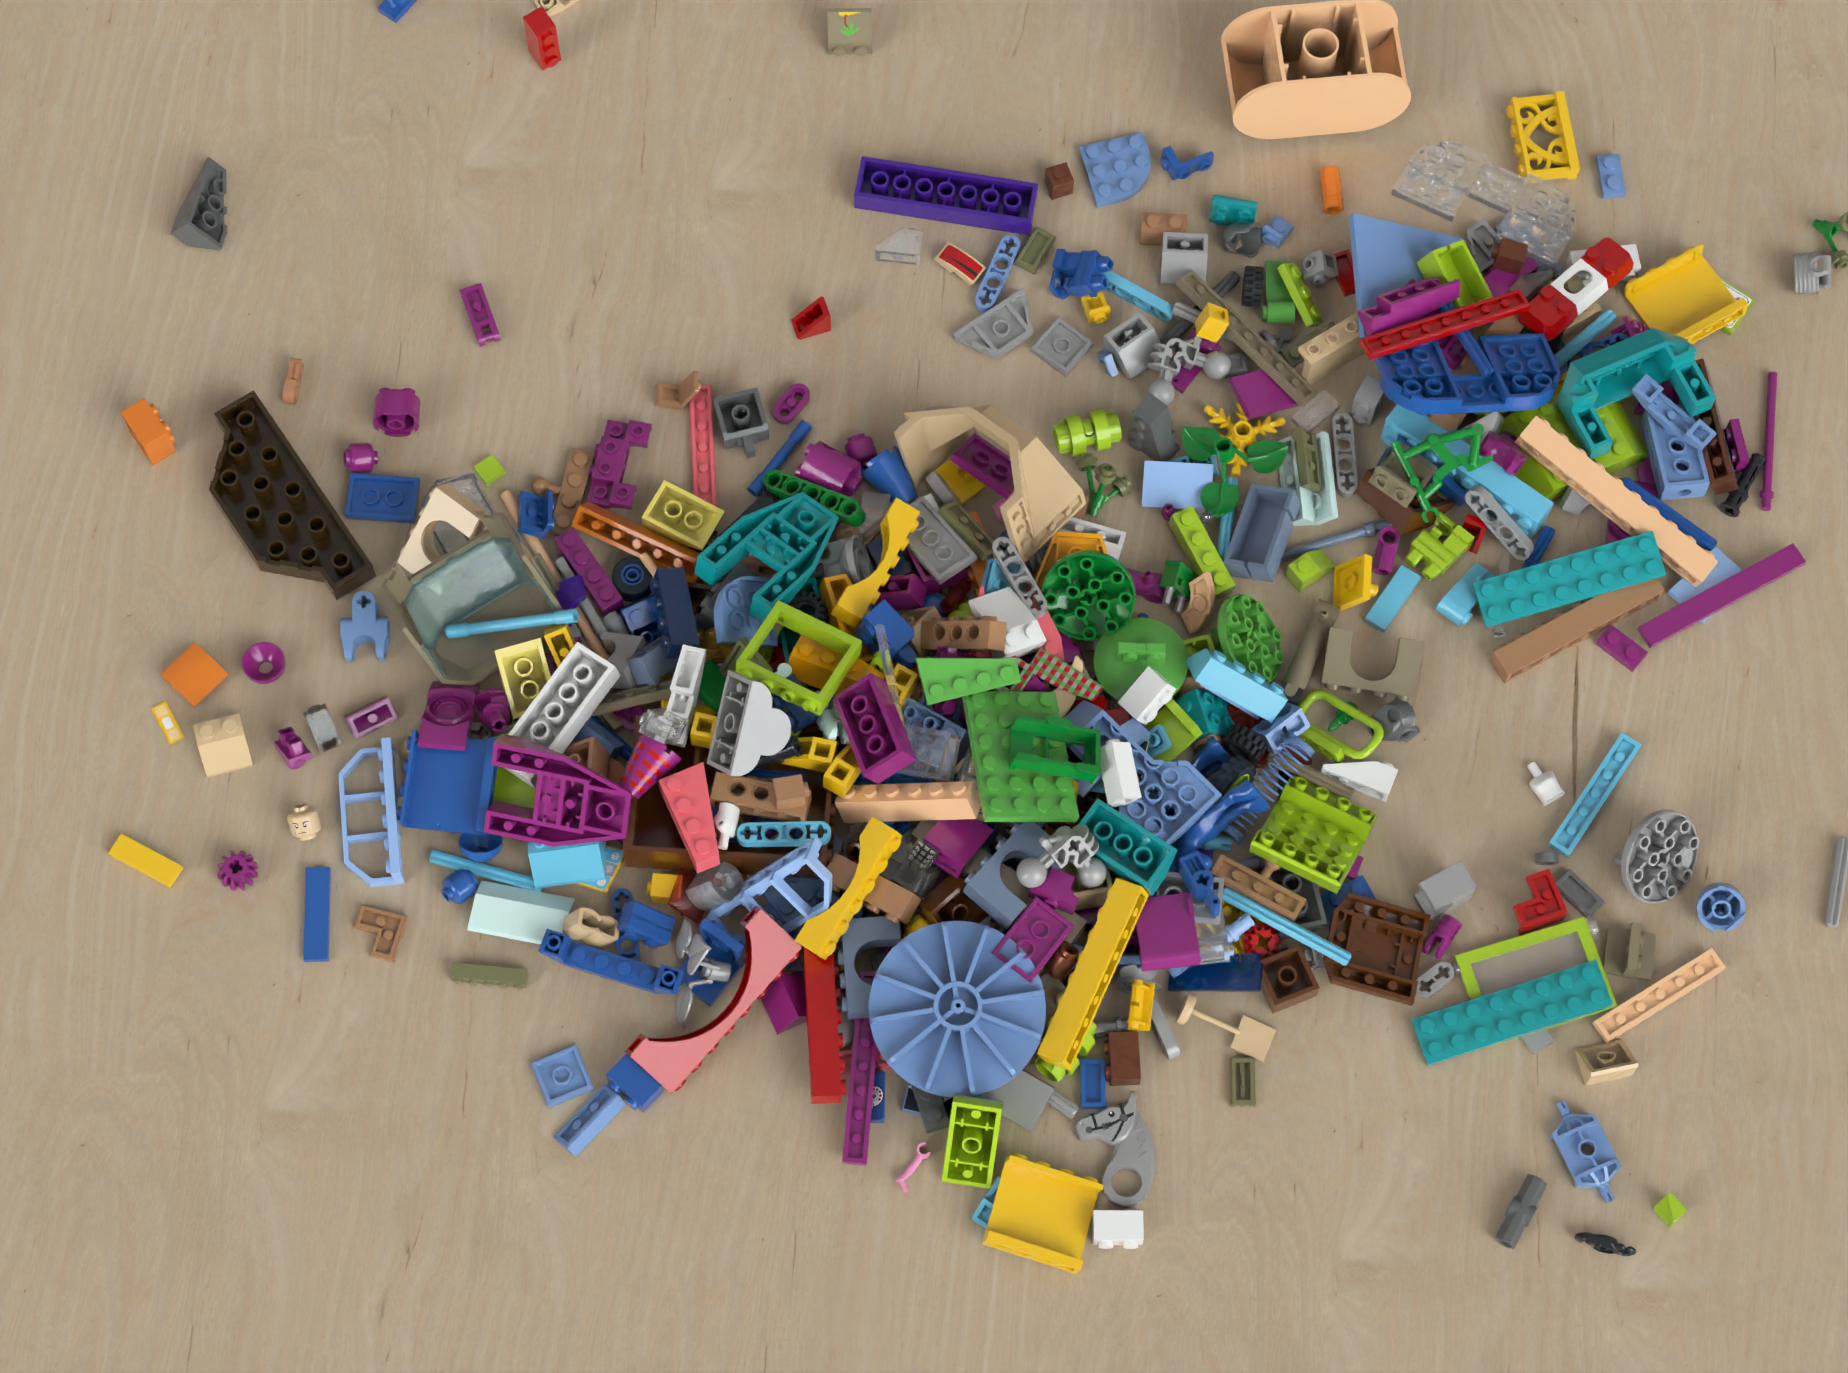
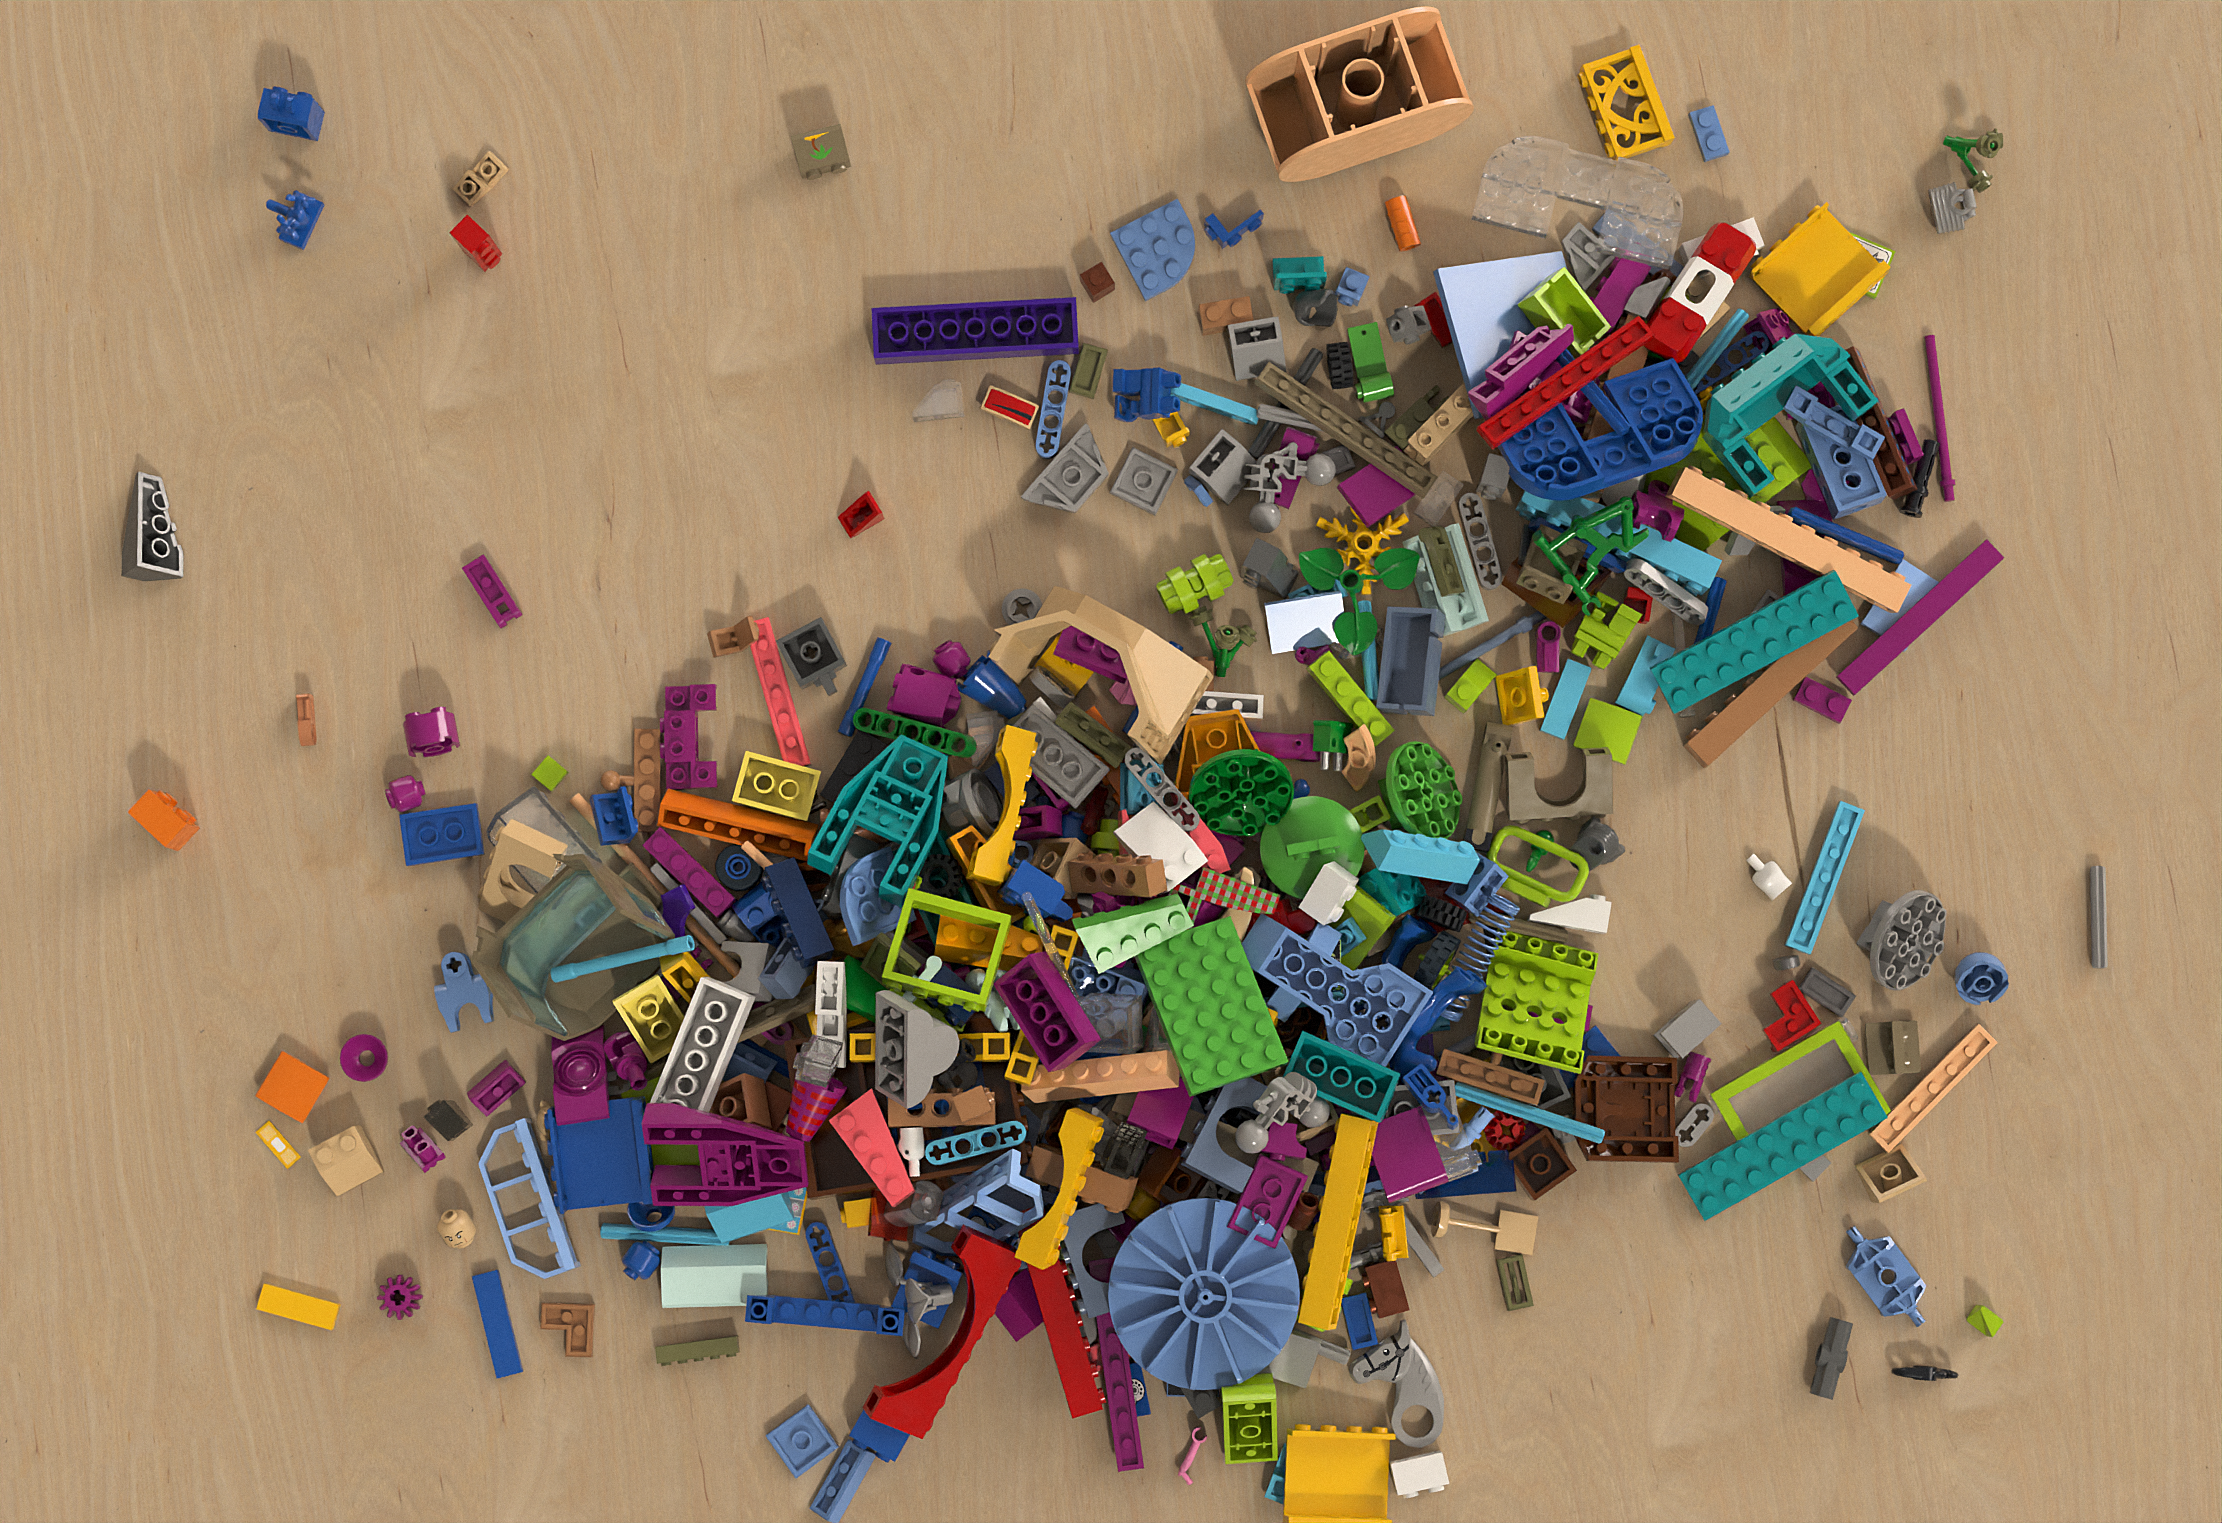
camera: 10 degrees left, 15 degrees up
(279, 505) = (329, 870): dark brown brick -> none
(591, 927) = (793, 1279): tan brick -> none
(645, 924) = (850, 1260): blue brick -> none
(789, 404) = (862, 620): magenta plate -> none
(1054, 729) = (1211, 1000): green piece -> none
(1119, 773) = (1319, 1000): white brick -> none
(1212, 322) = (1305, 424): yellow panel -> none
(1300, 294) = (1394, 362): lime plate -> none
(1426, 625) = (1608, 727): none -> lime slope
(1509, 256) = (1618, 269): copper brick -> none

